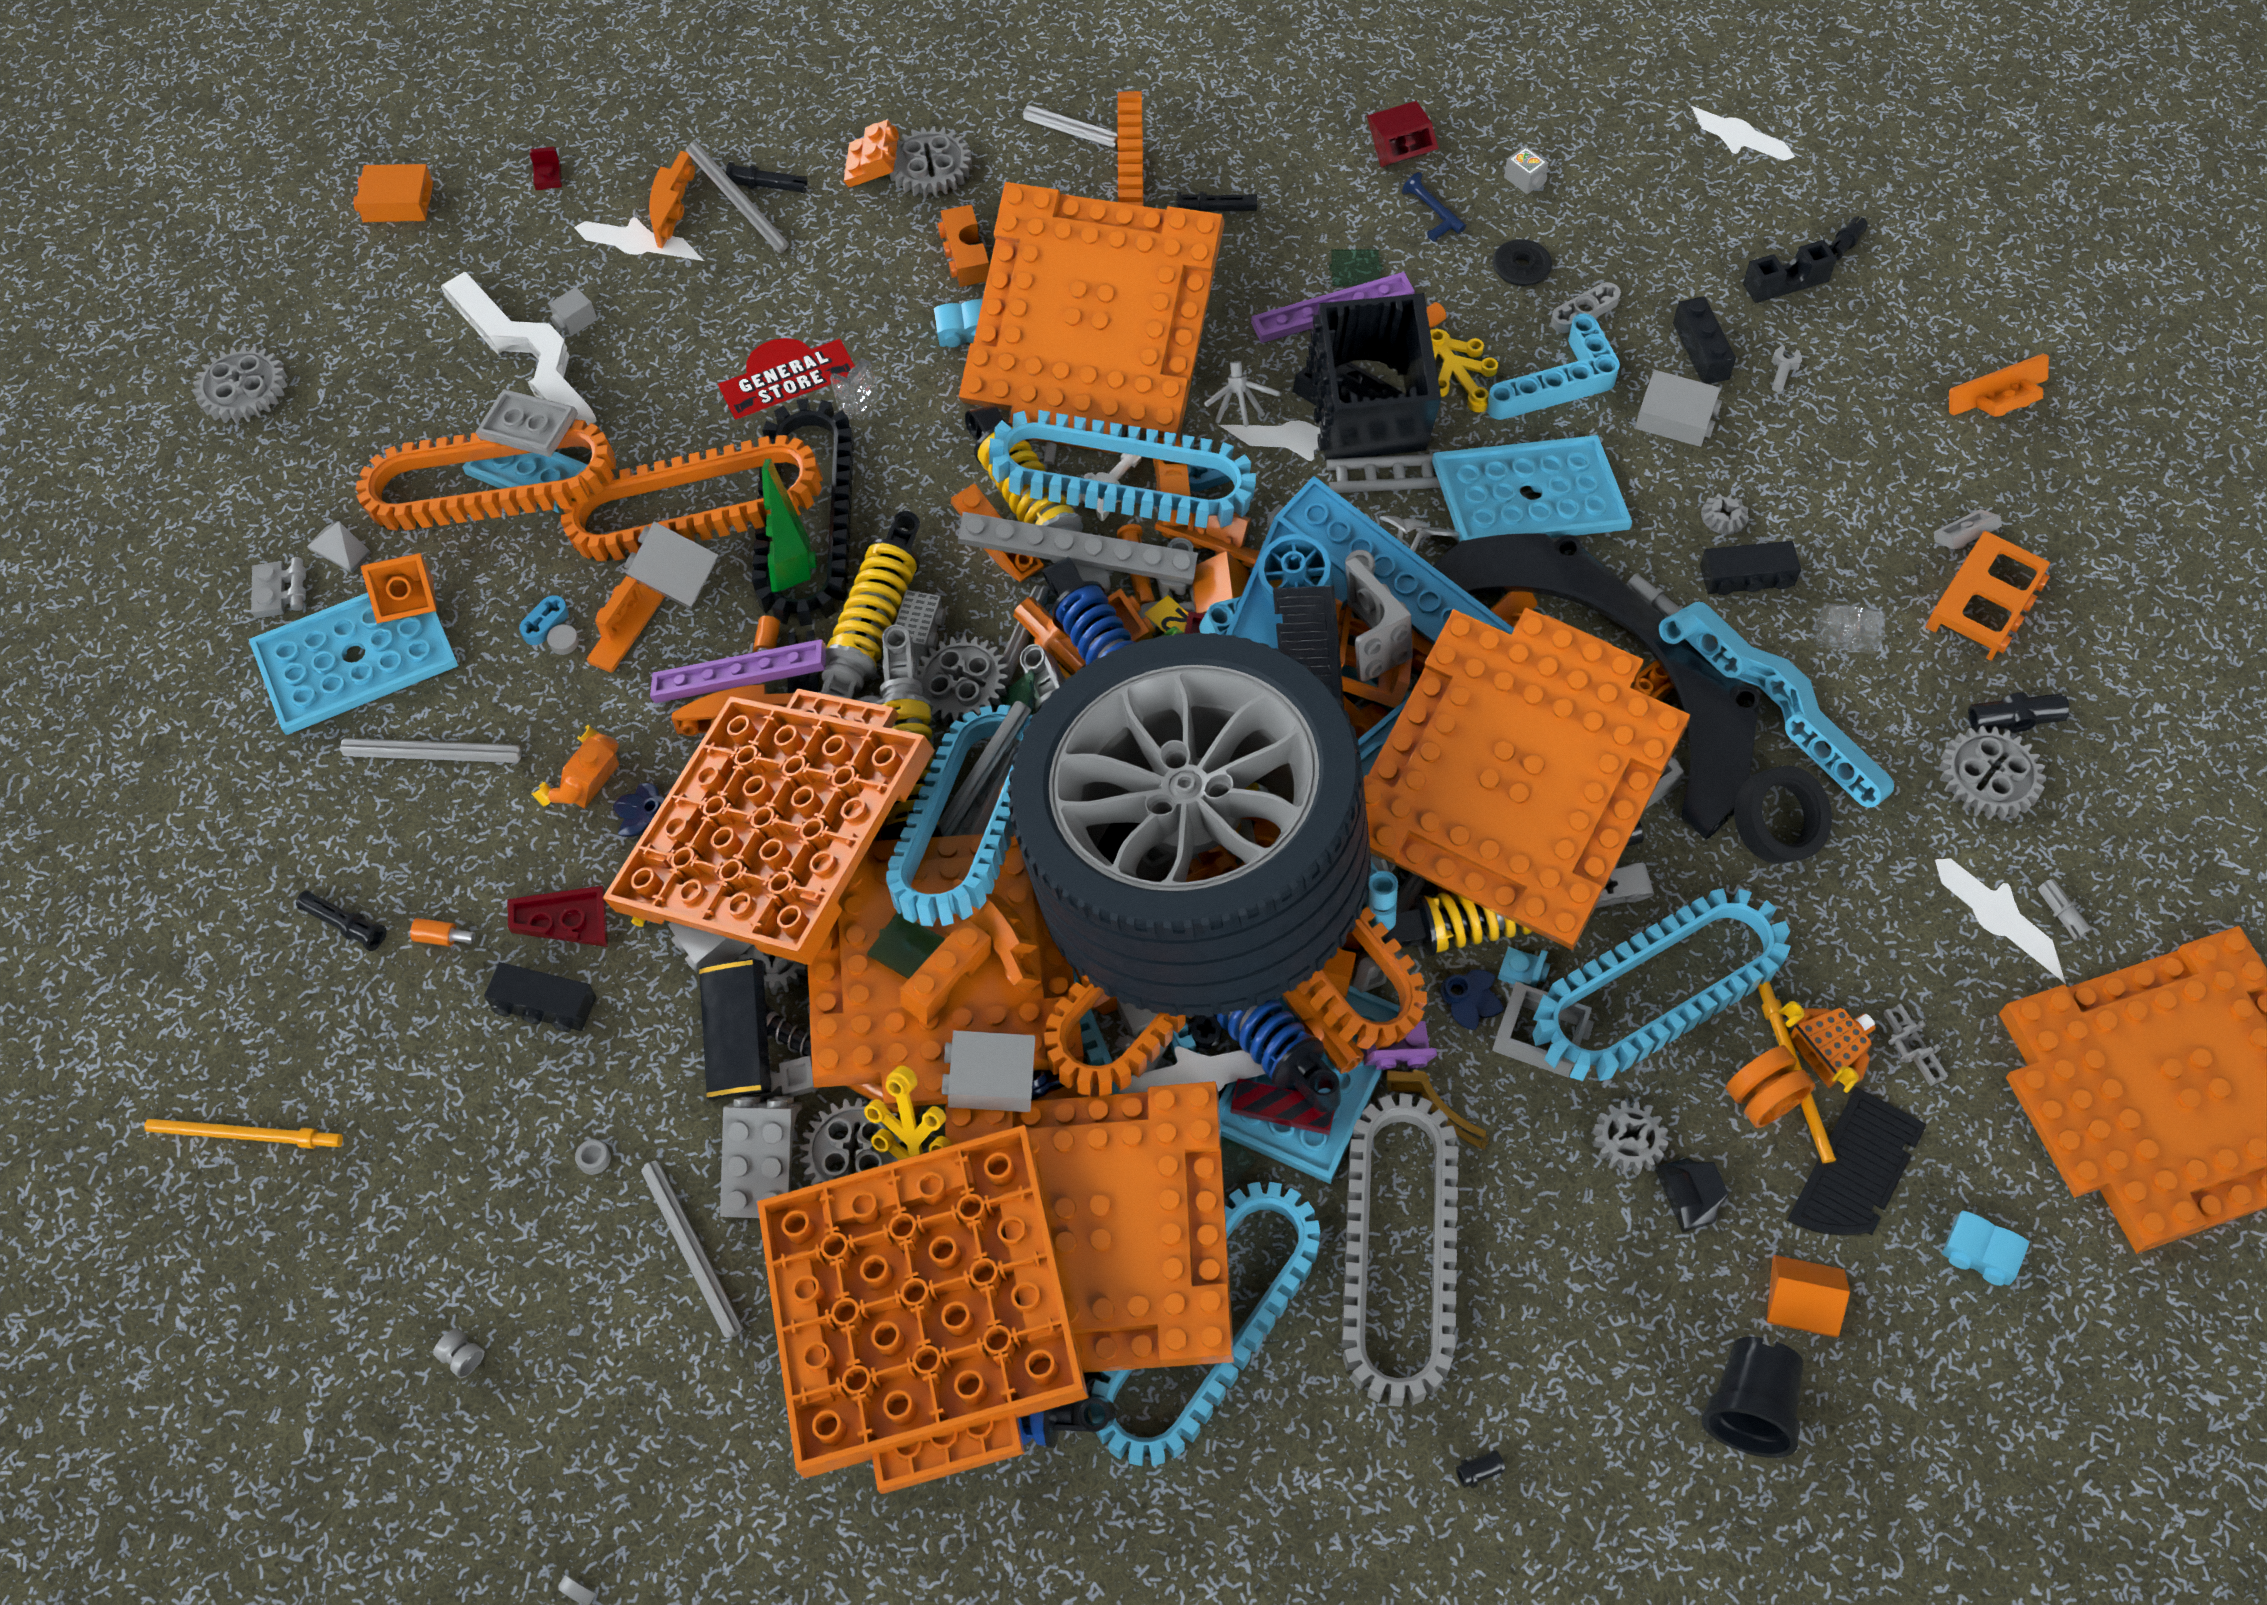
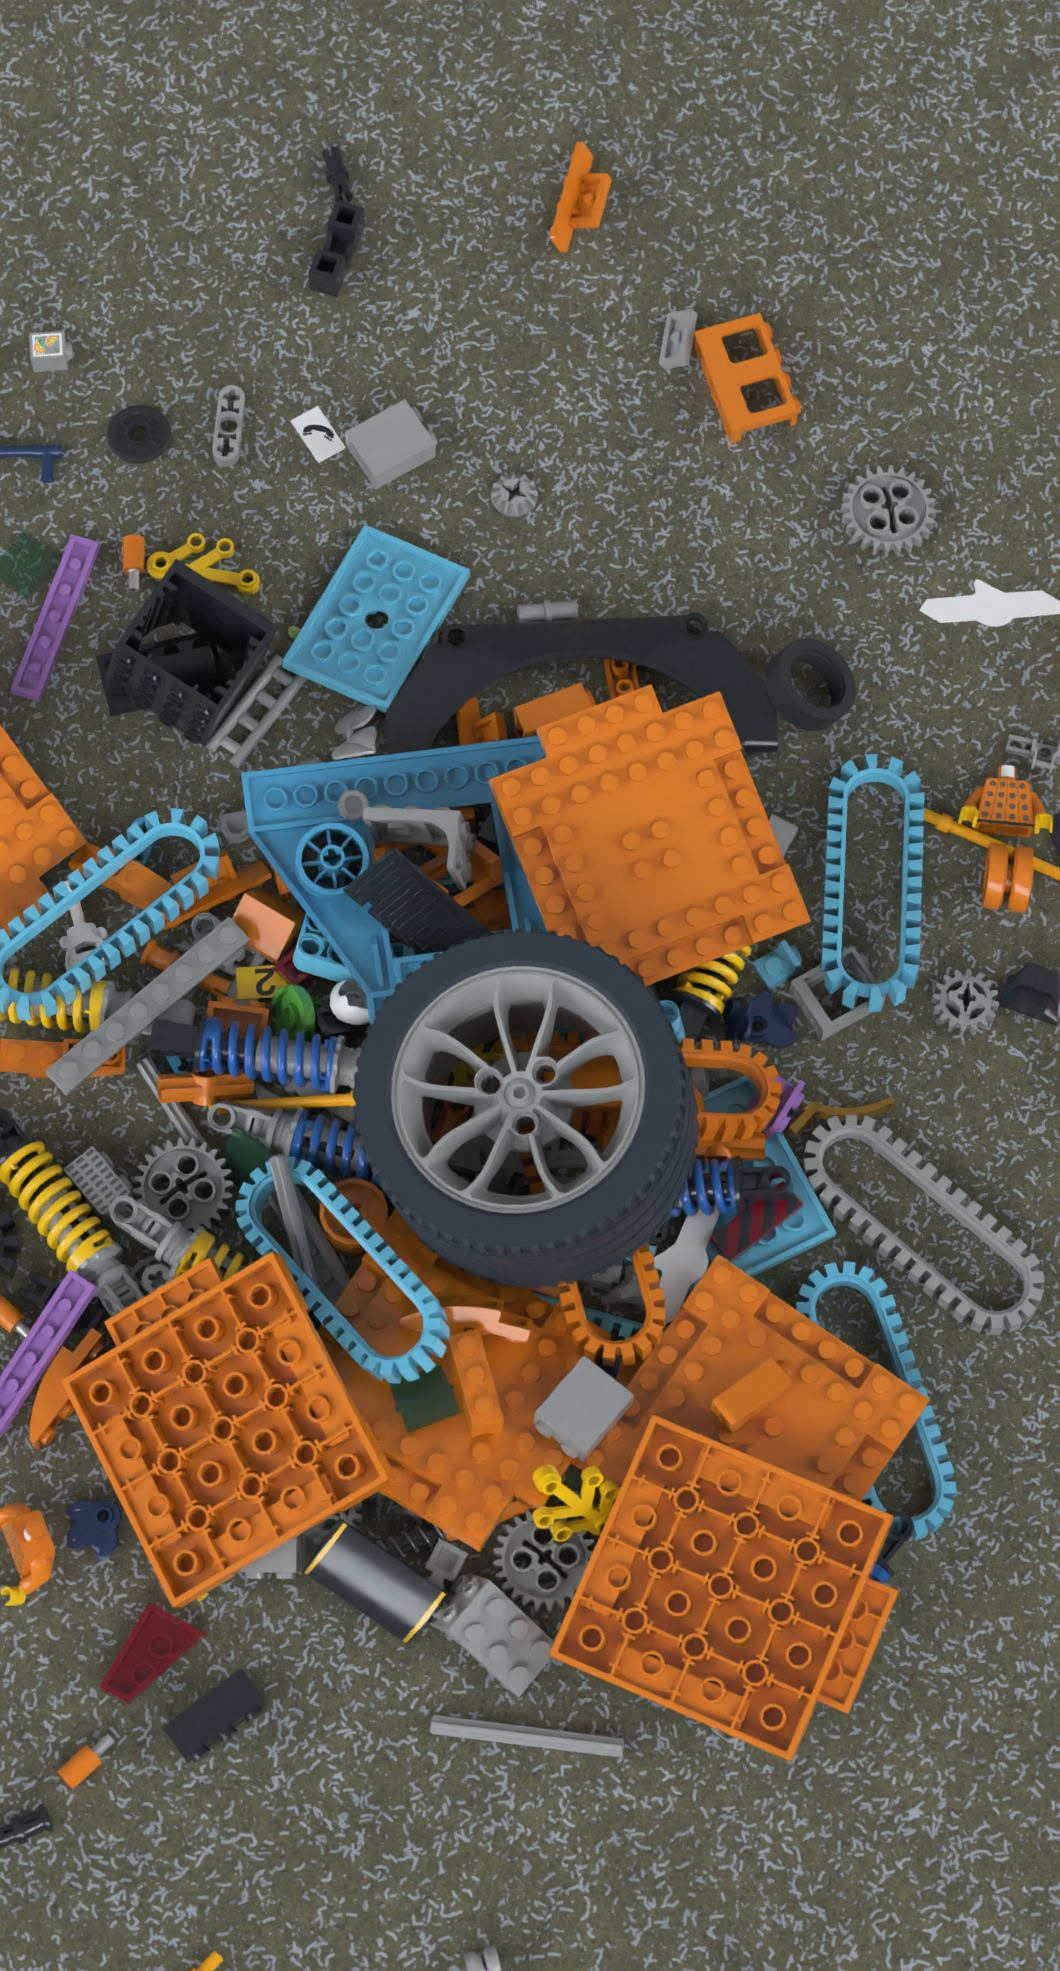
camera: 55 degrees left, 10 degrees up
(592, 1156) = (389, 1763): light grey tile -> none
(1105, 1191) = (751, 1394): none -> orange slope
(1238, 384) = (87, 756): light grey plant -> none
(1294, 435) = (154, 749): white sticker -> none
(1450, 965) = (738, 1015): none -> dark blue plate
(1590, 375) = (288, 503): medium azure beam -> none
(1638, 365) = (318, 434): none -> white sticker
(1704, 340) = (344, 368): black brick -> none
(1739, 133) = (155, 156): white sticker -> none
(1750, 567) = (581, 521): black brick -> none
(1784, 365) = (417, 331): light grey bar -> none
(1795, 697) = (714, 587): medium azure beam -> none
(1849, 628) = (693, 499): clear brick -> none
(2019, 712) = (856, 448): black piece -> none
(2064, 909) = (1028, 562): light grey axle -> none

